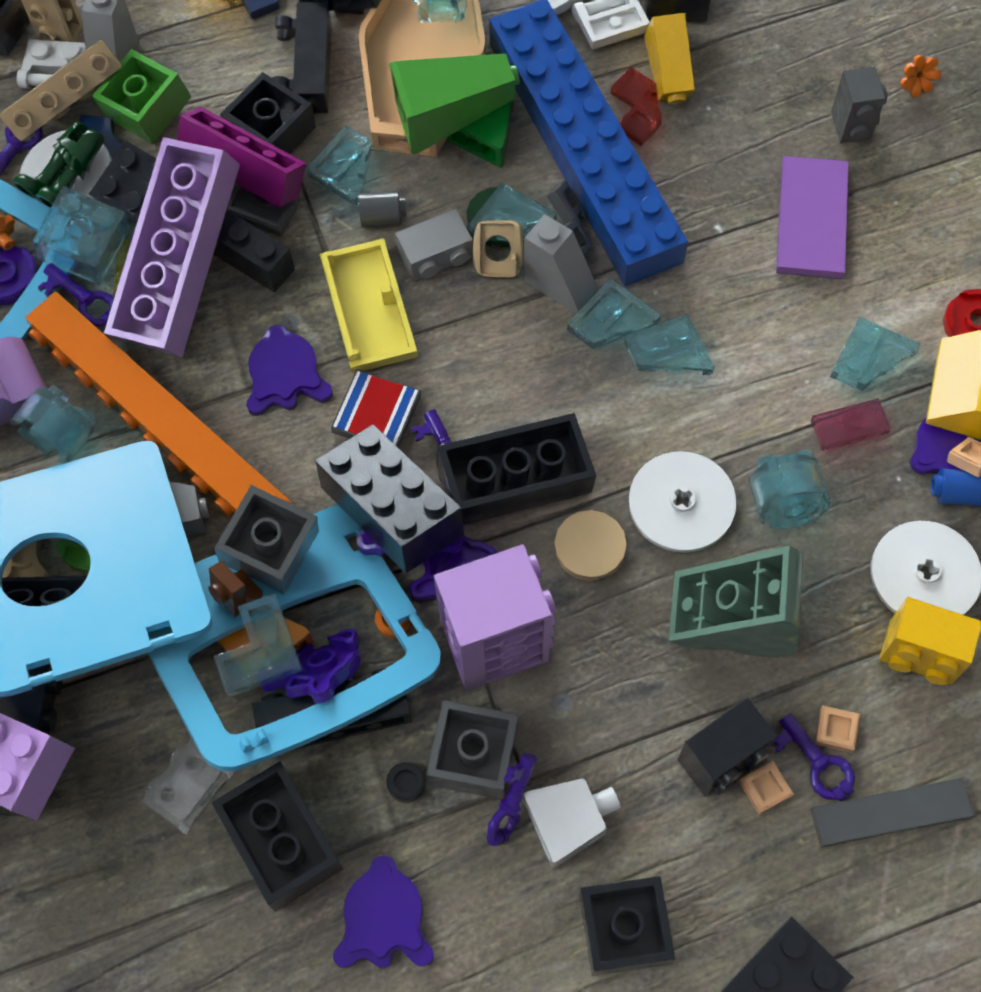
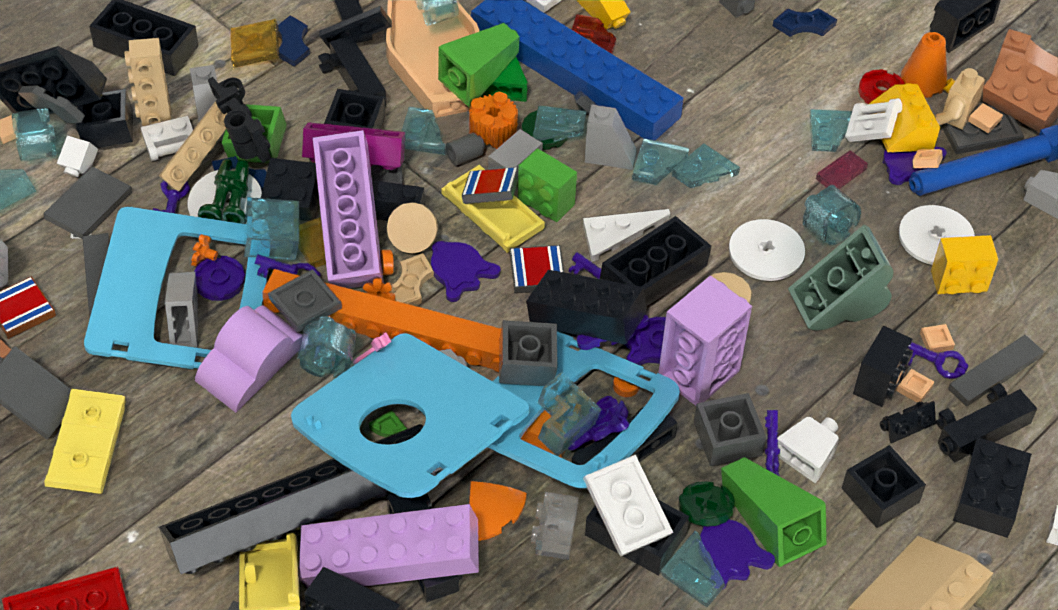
camera: 30 degrees left, 15 degrees down
(62, 350) = (304, 300): none -> dark grey tile
(106, 74) = (242, 129): none -> black plate
(110, 446) = (377, 344): none -> bright pink piece
(129, 725) = (495, 507): none -> orange brick
(165, 369) = (379, 289): none -> orange plant
(198, 330) = (387, 262): none -> orange tile
(204, 378) = (414, 274): none -> tan tile
(232, 588) = (525, 385): reddish brown bracket -> none
(250, 297) = (412, 228): none -> tan tile
(256, 818) = (627, 505): none -> white tile
(317, 931) = (694, 571): none -> clear light blue wing
(371, 276) = (490, 185): none -> tile
(389, 840) = (706, 503): none -> dark green tile
(405, 782) = (694, 470): black tile -> none
(435, 180) = (493, 118): none -> orange brick
(442, 301) = (547, 185): none -> bright green brick
(465, 904) = (778, 512): none -> bright green slope
(501, 394) = (614, 230): none -> white wing
(513, 263) = (575, 148): tan piece -> none
(742, 838) = (910, 422): none -> black hinge
(812, 217) = (746, 64): medium lavender tile -> none
(825, 894) = (992, 422): none -> black brick
(925, 377) = (873, 126): none -> white plate
(941, 187) = (795, 22): none -> dark blue tile

